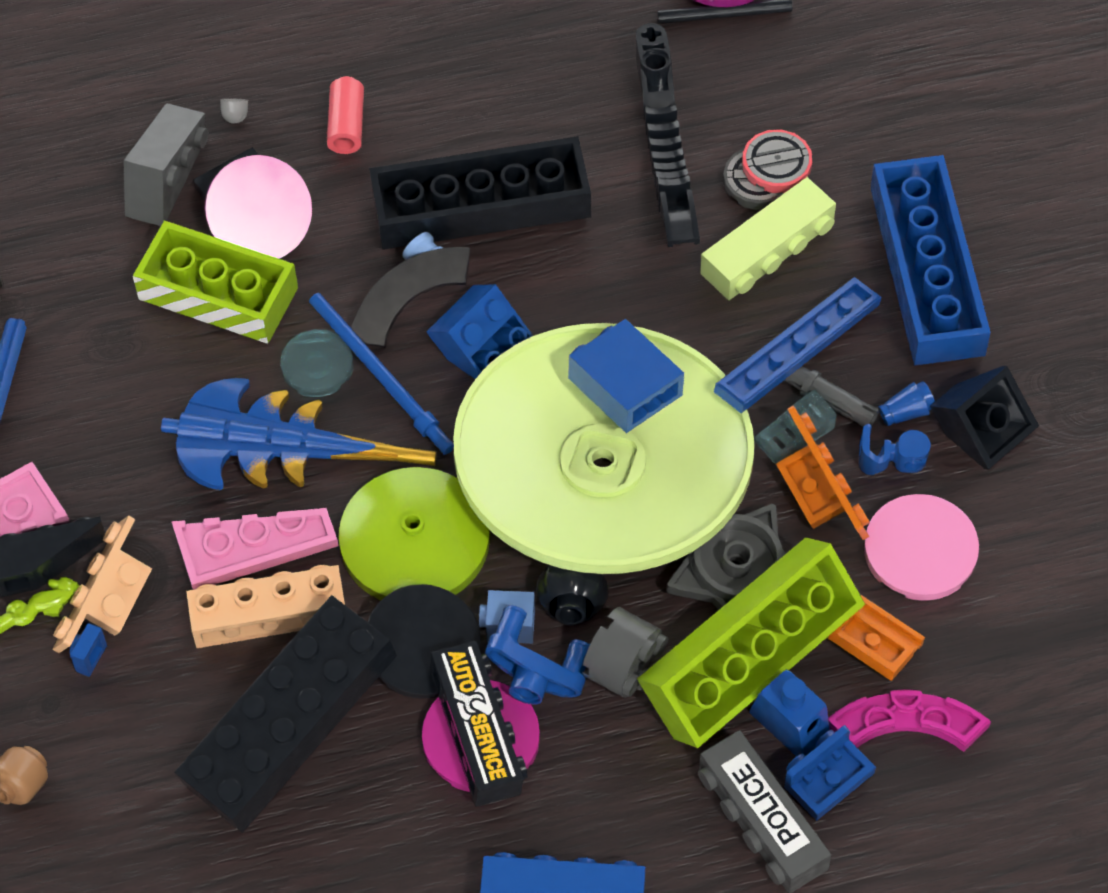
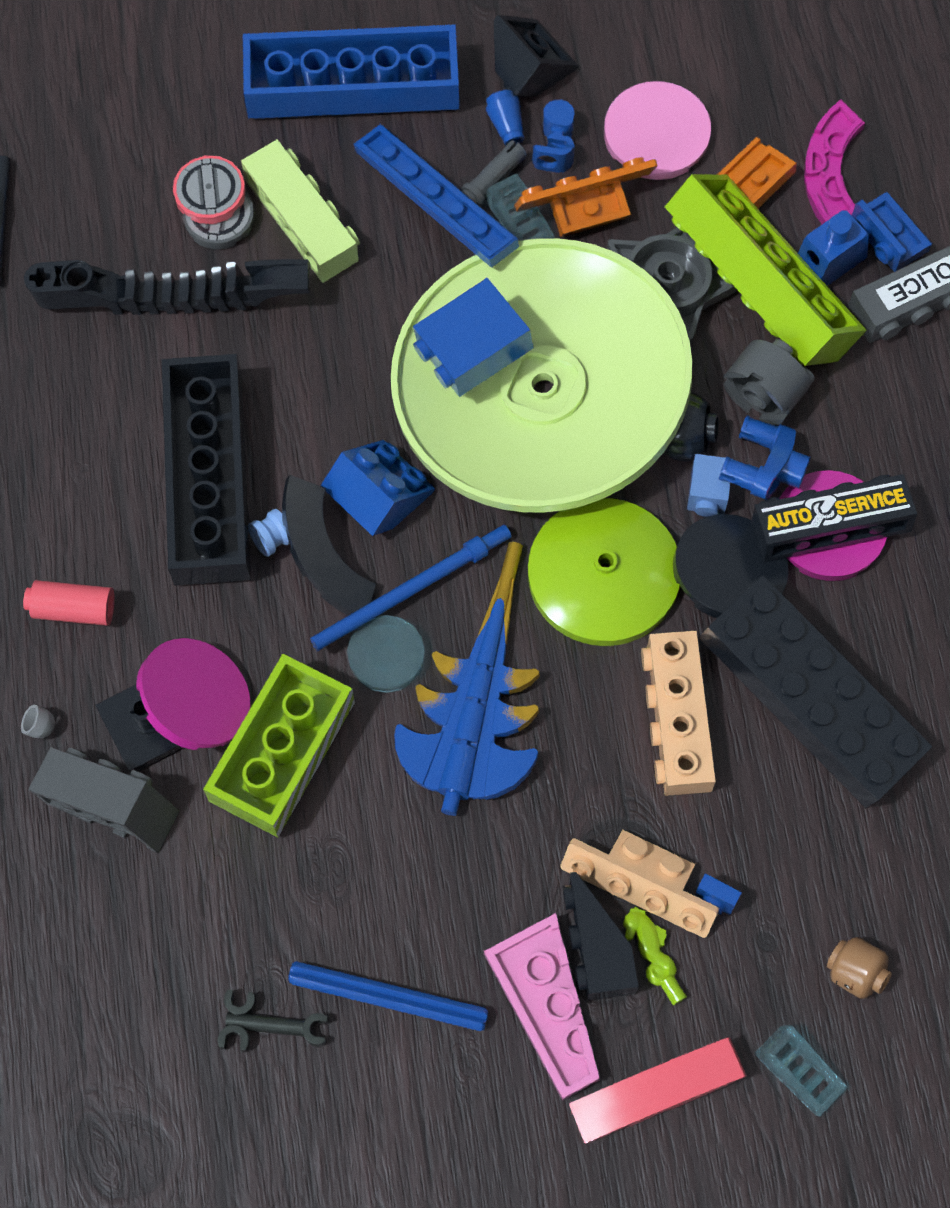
camera: 85 degrees left, 10 degrees up
(234, 548) = (603, 733): bright pink wing -> none

